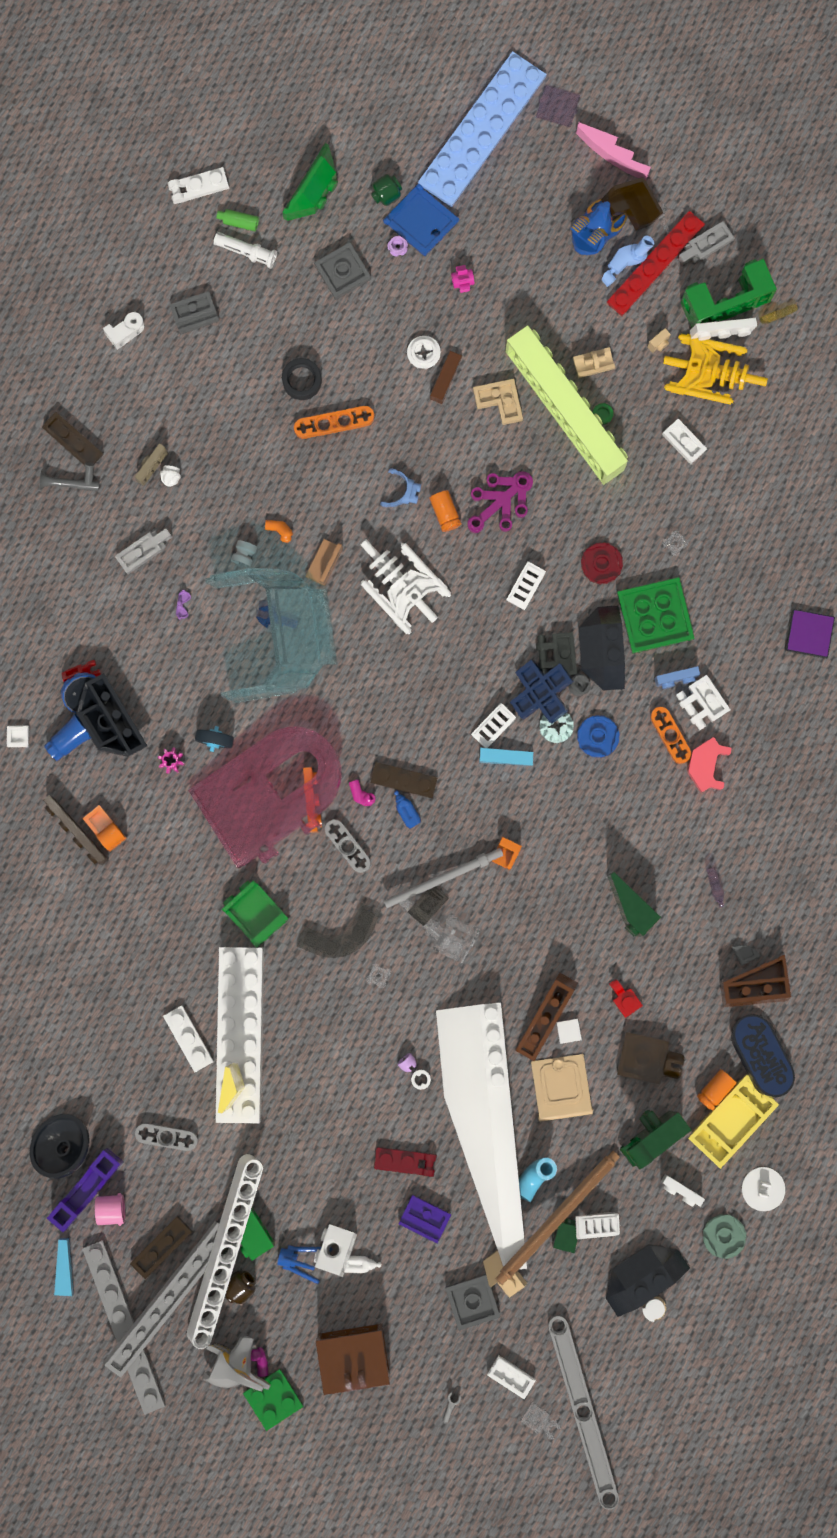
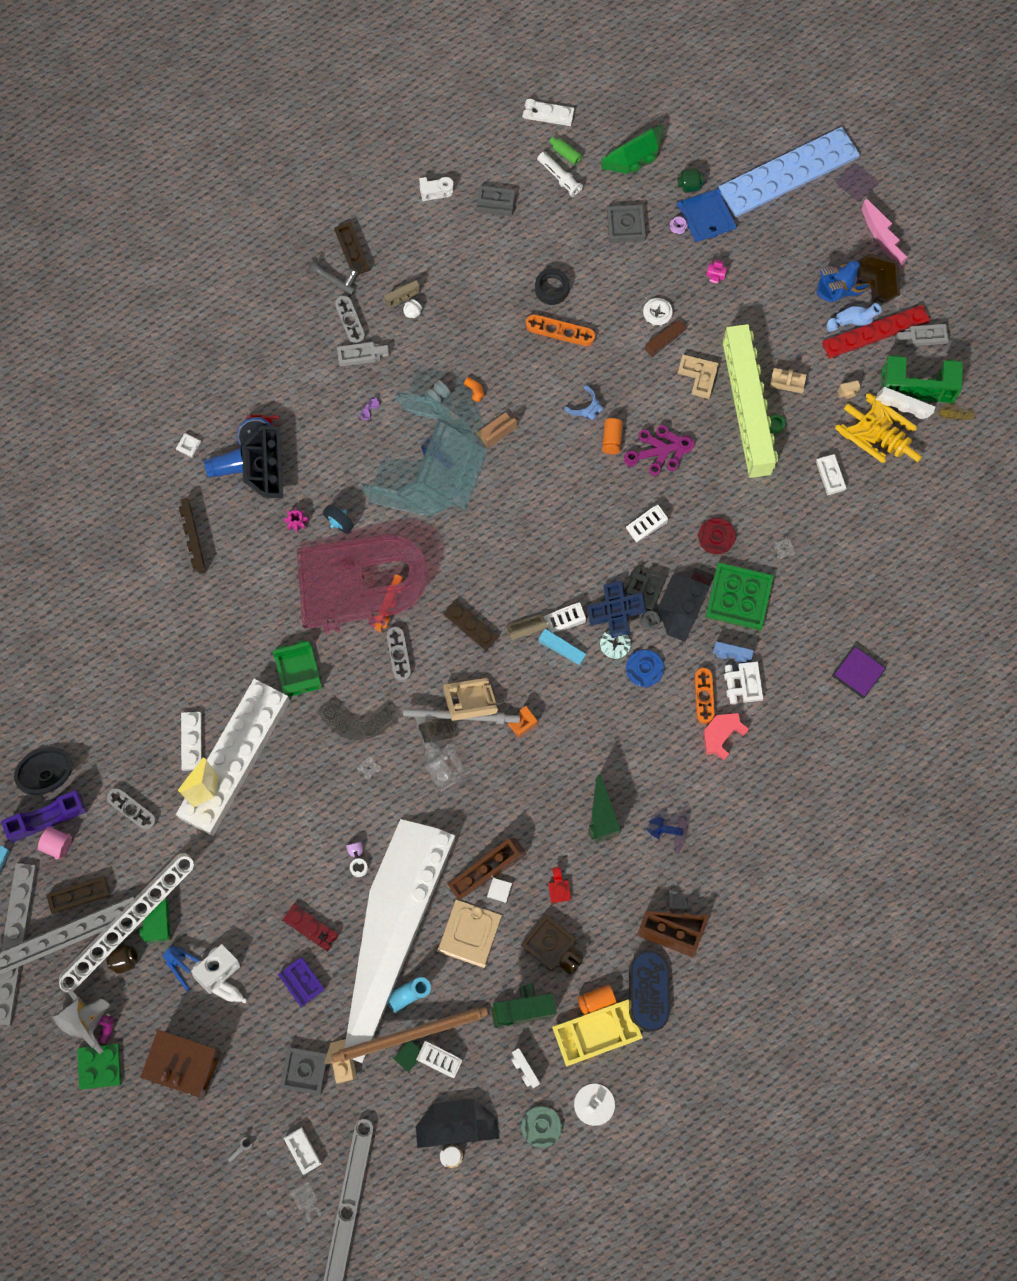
camera: 25 degrees right, 10 degrees down
(104, 505) = (348, 328): none -> light grey beam
(104, 828) = (216, 546): orange plate -> none
(360, 796) = (429, 621): dark pink arm -> none
(406, 588) = (550, 479): white bar -> none
(406, 810) = (460, 650): blue piece -> none
(446, 855) = (474, 699): none -> tan container
(460, 754) = (526, 627): none -> dark tan plate
(698, 890) = (663, 828): none -> clear blue bar

